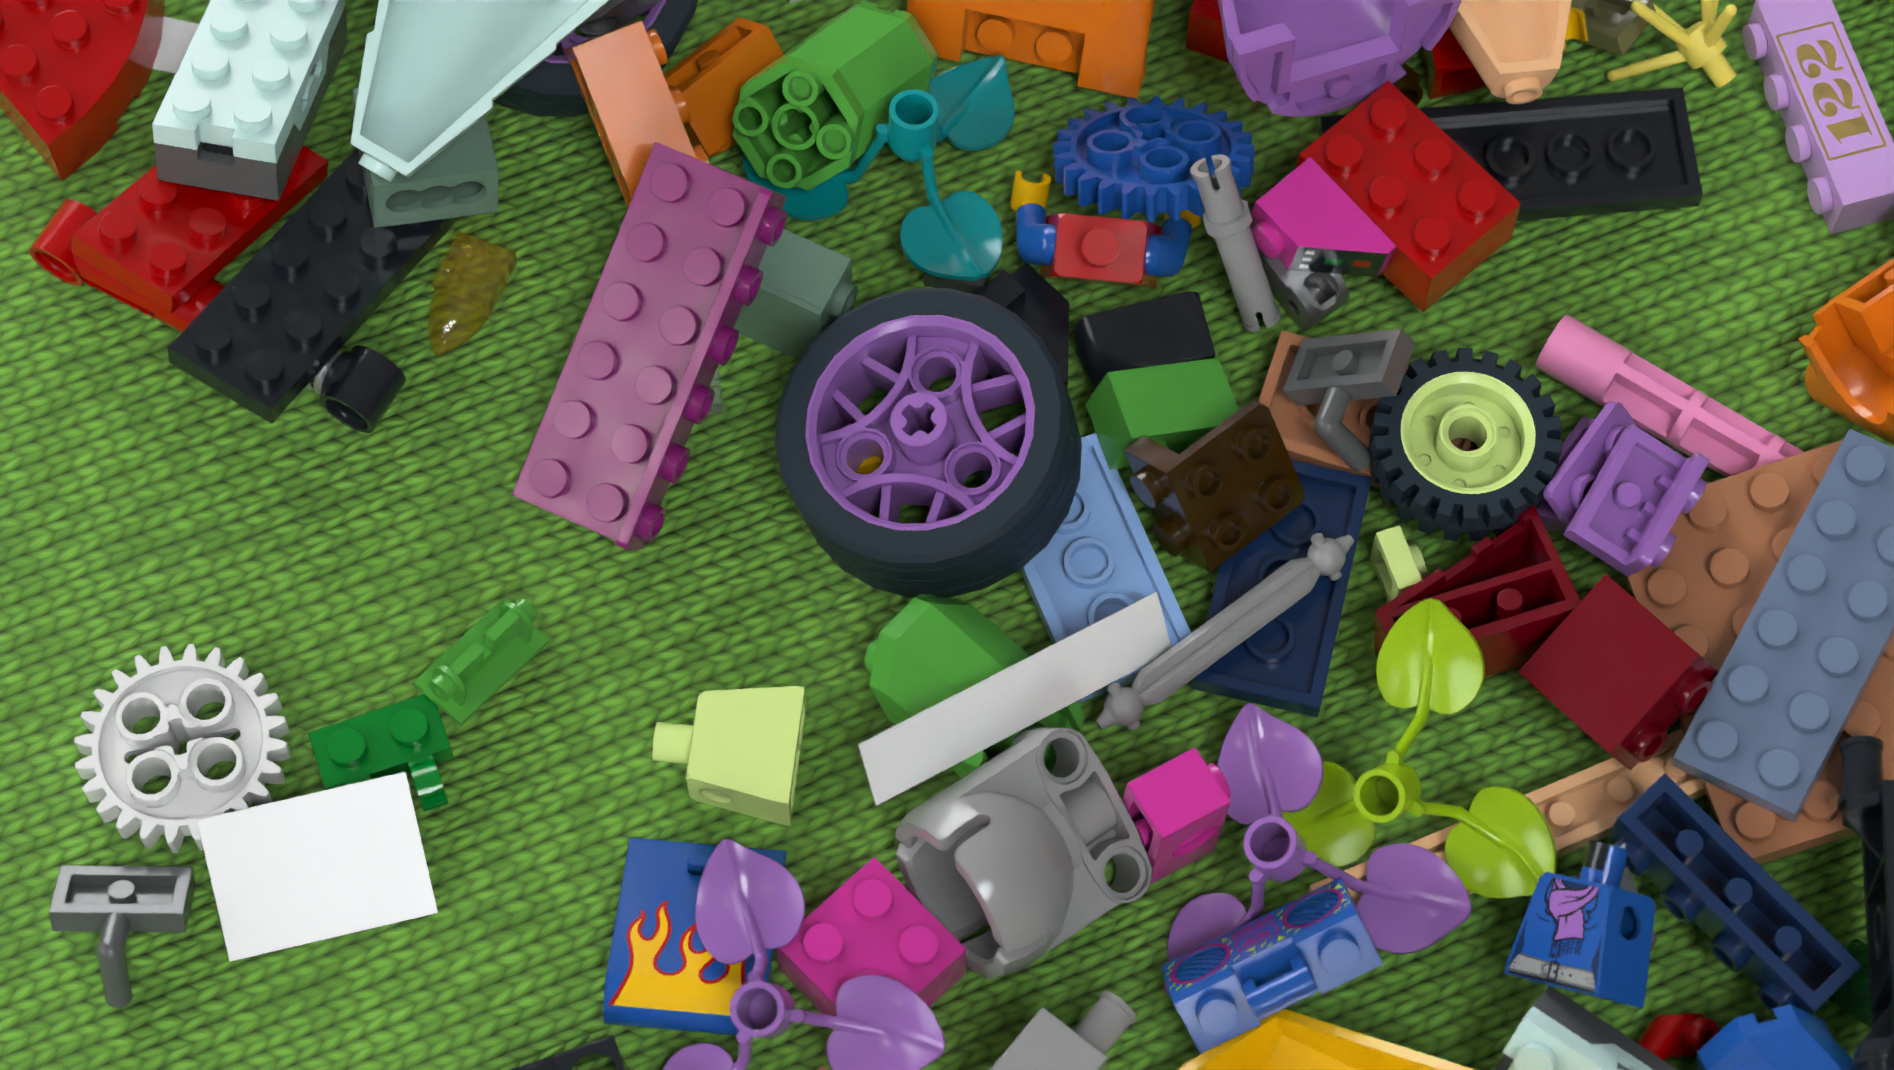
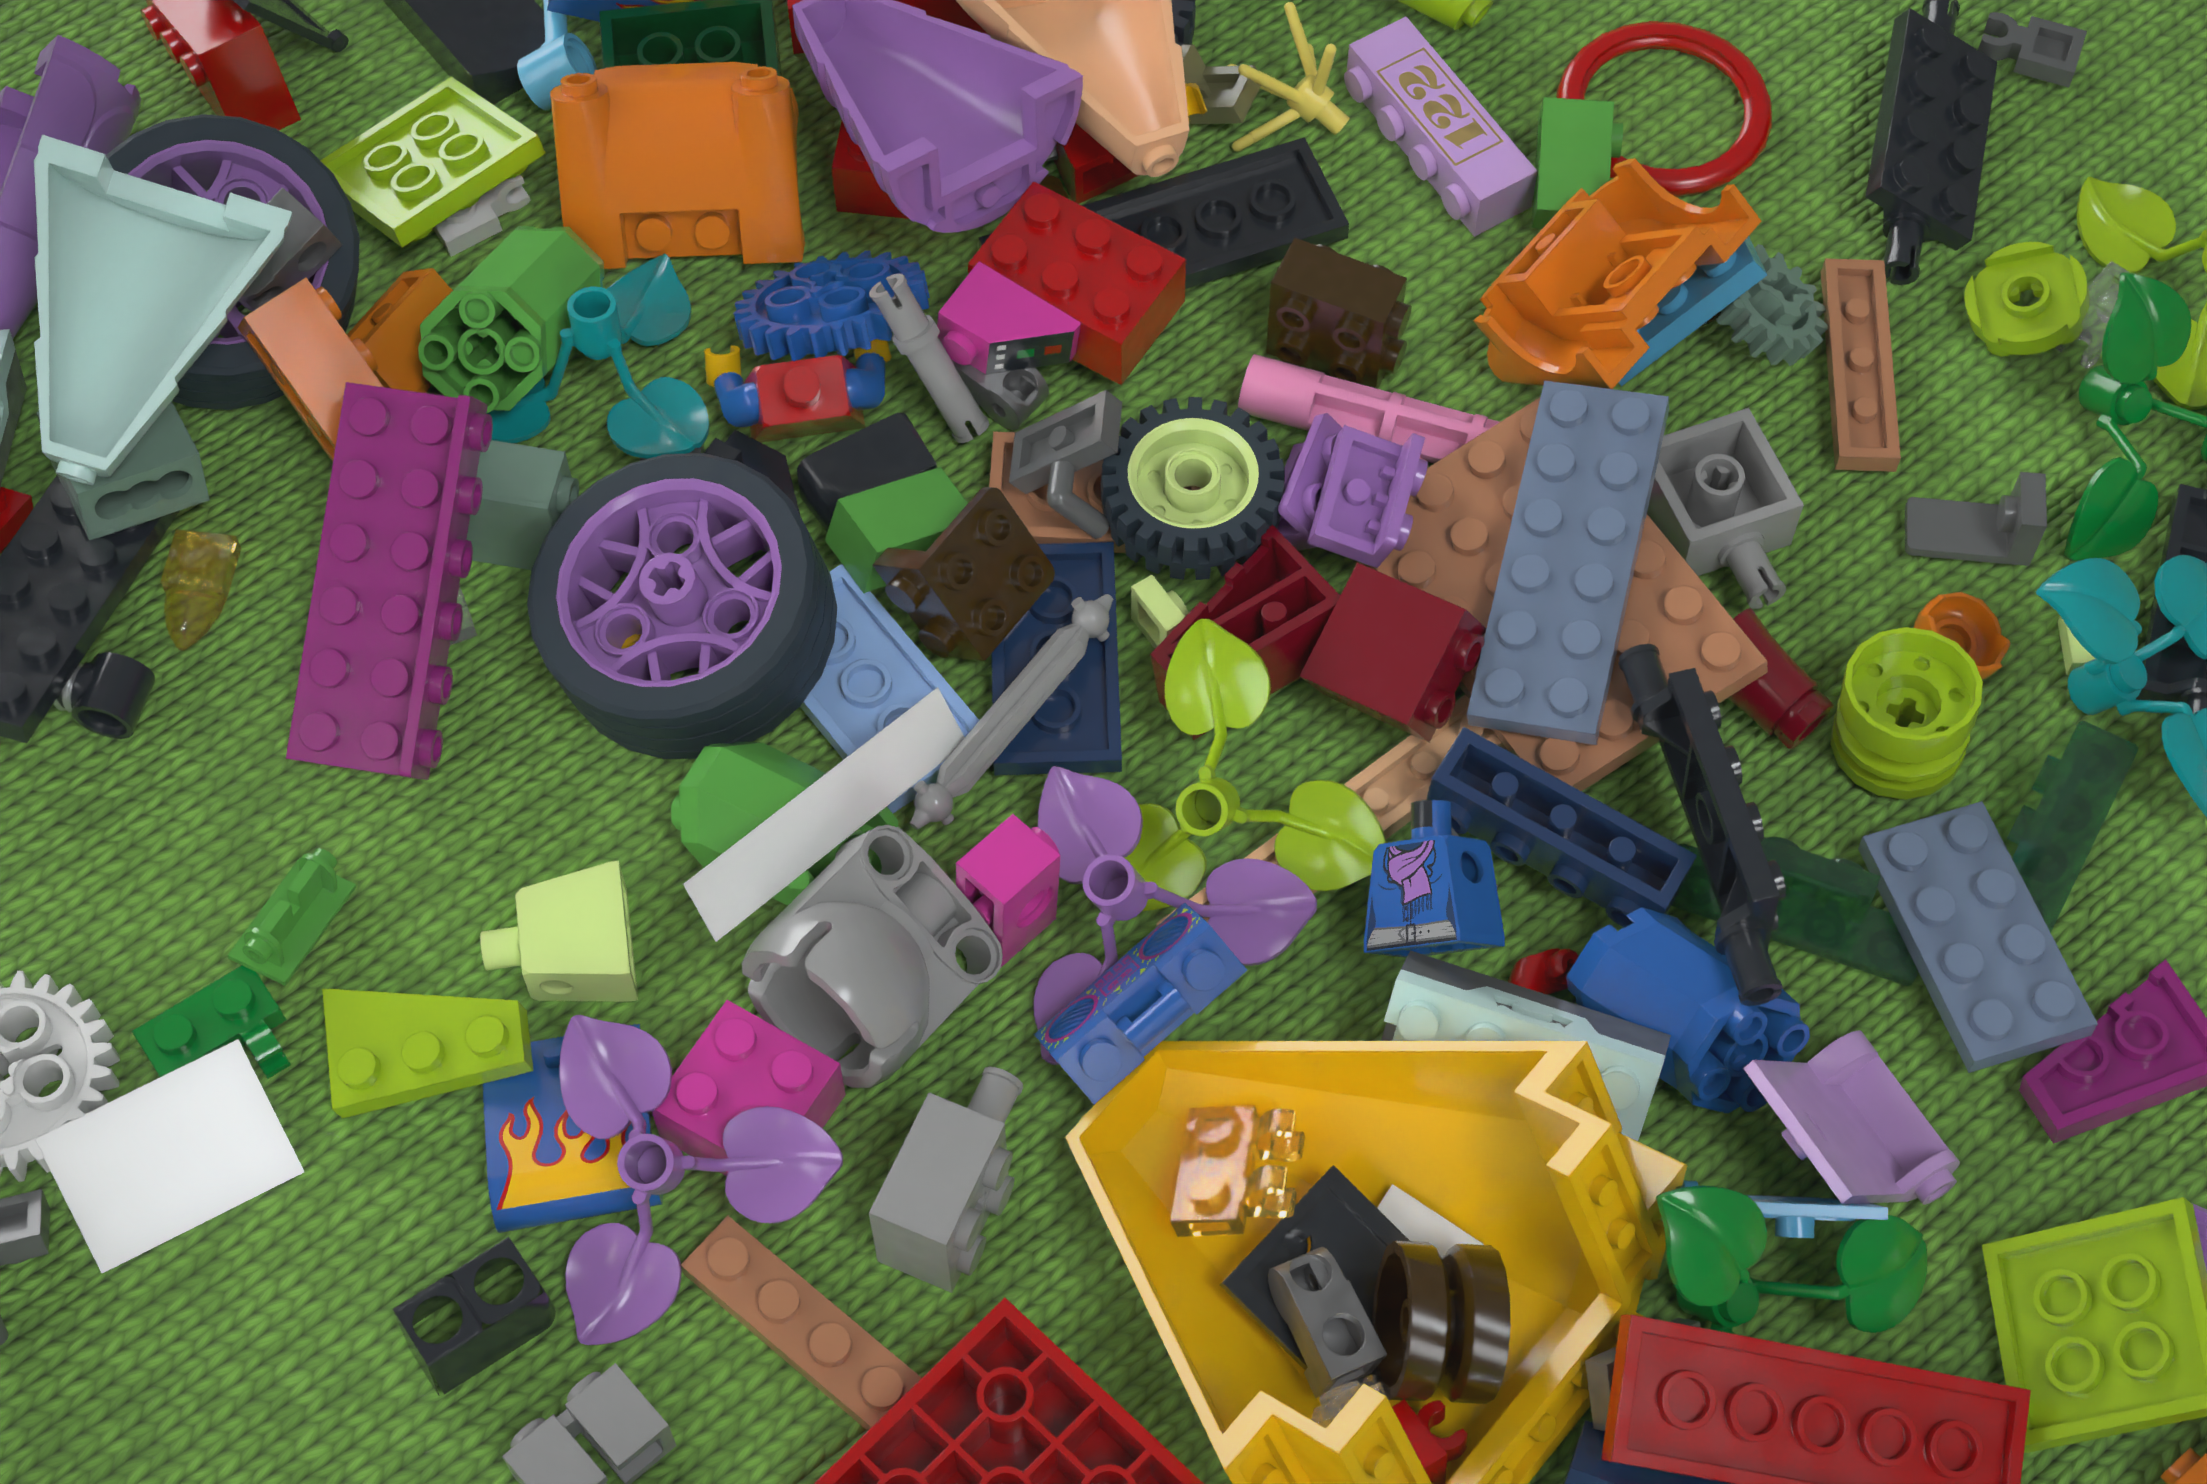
camera: 15 degrees left, 5 degrees down
(571, 819) = (418, 1046): none -> lime wing
(1661, 295) = (1337, 315): none -> dark brown brick

